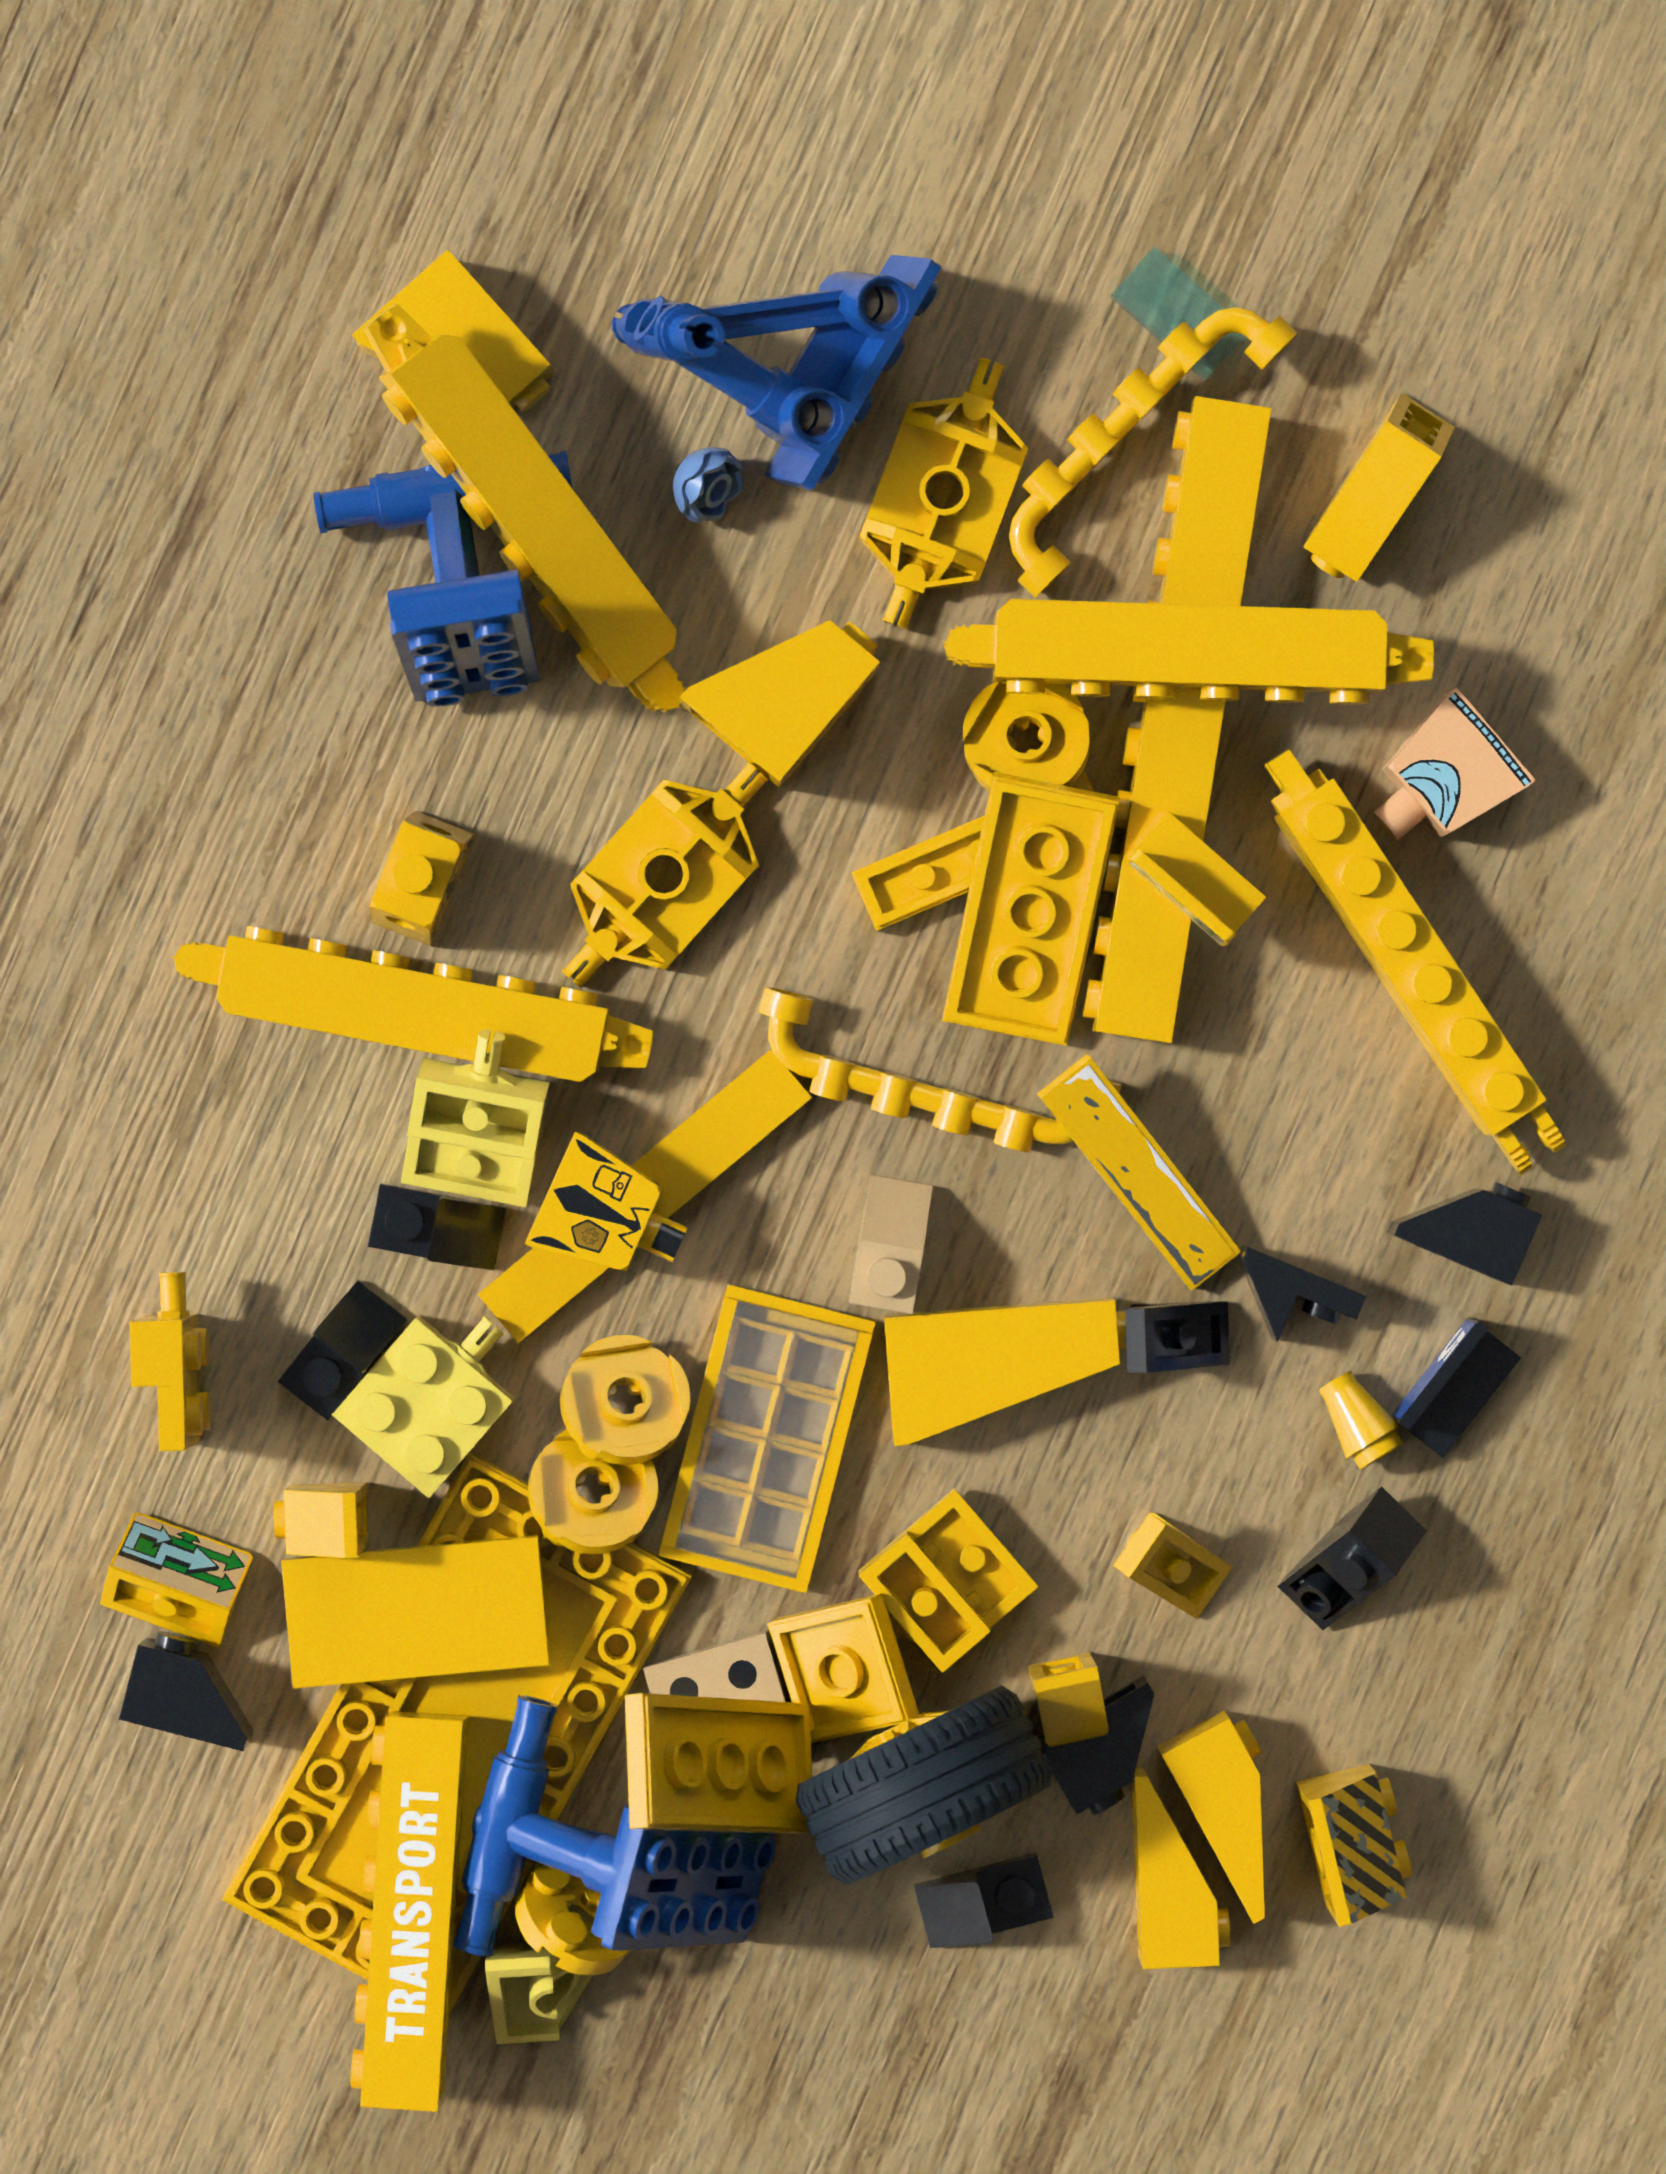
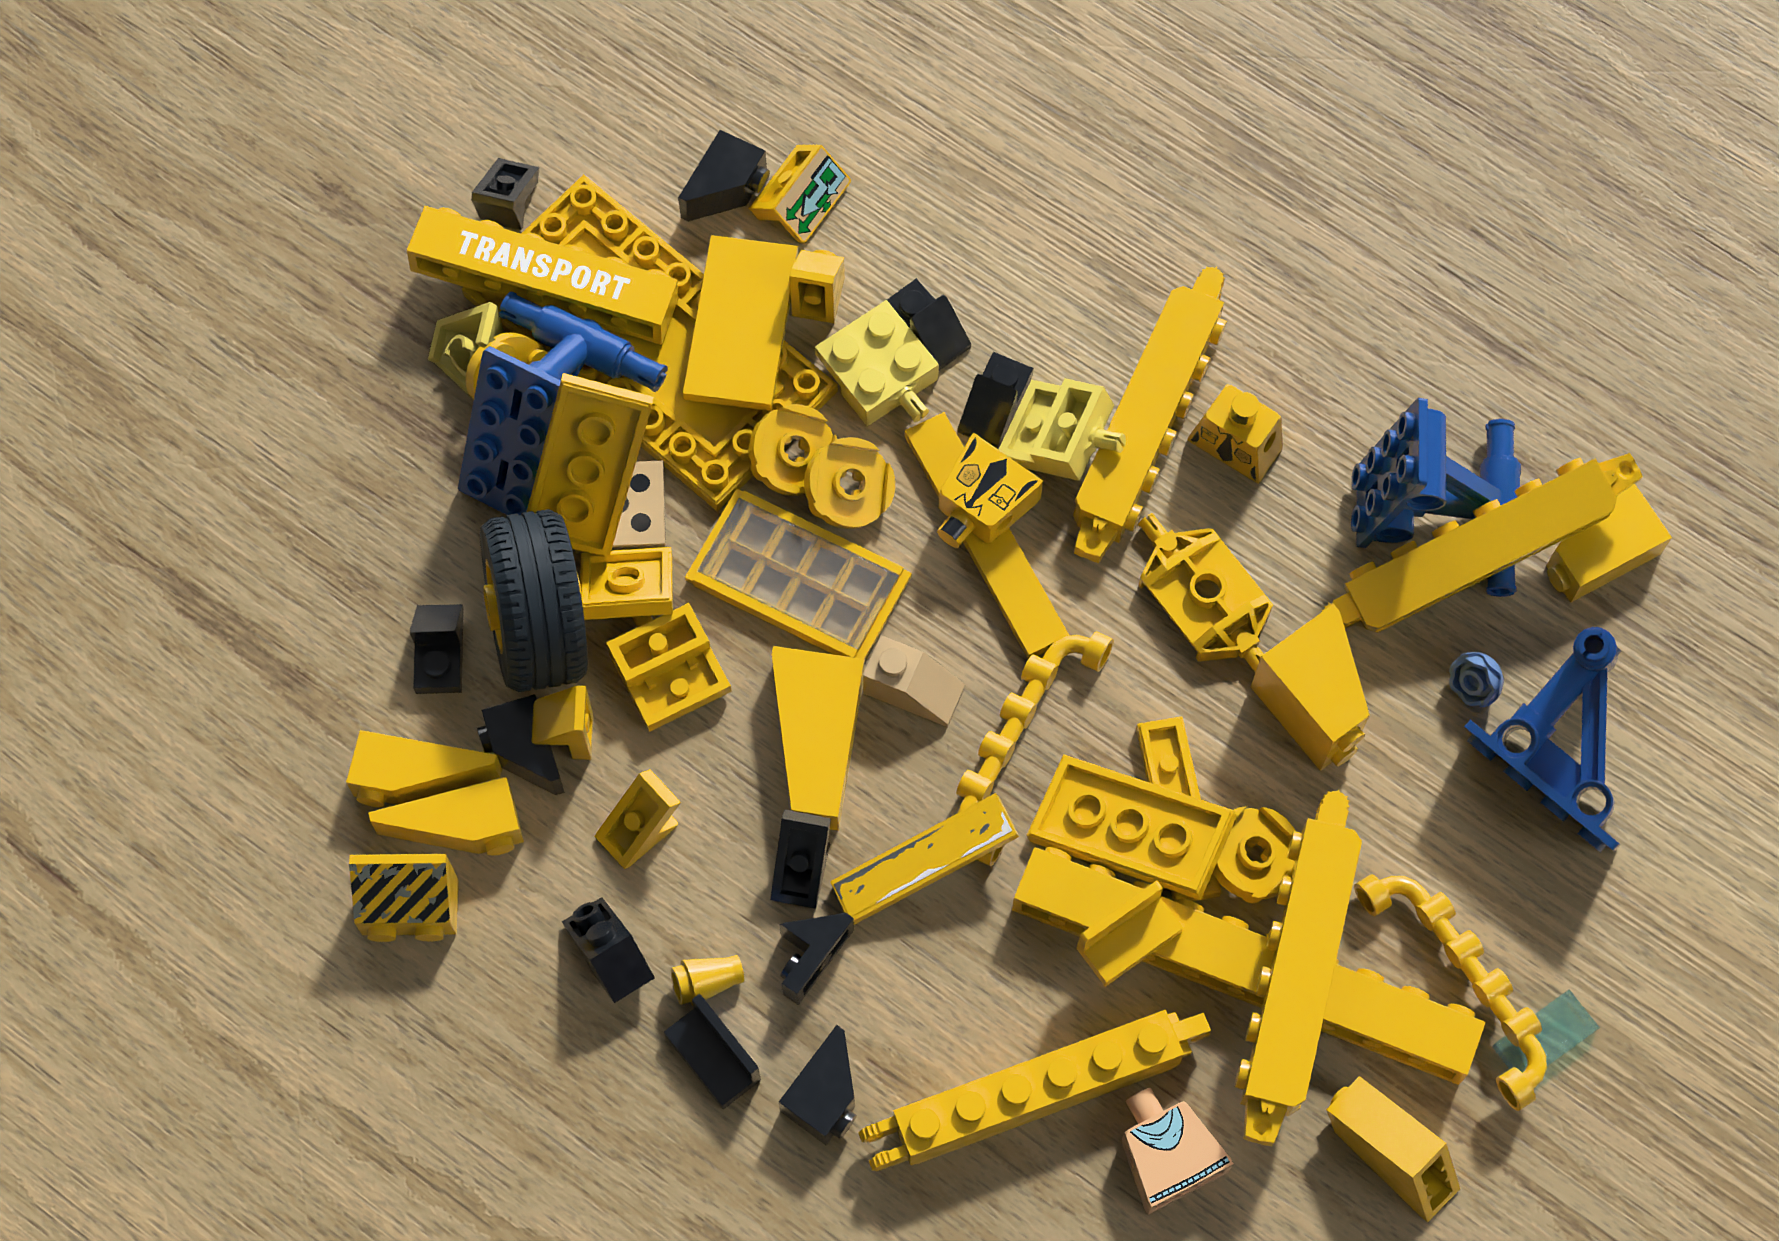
camera: 100 degrees right, 20 degrees down
(168, 1354) = (940, 208): yellow plate -> none
(277, 2003) = (504, 191): none -> black slope
(934, 545) = (1464, 870): yellow plate -> none

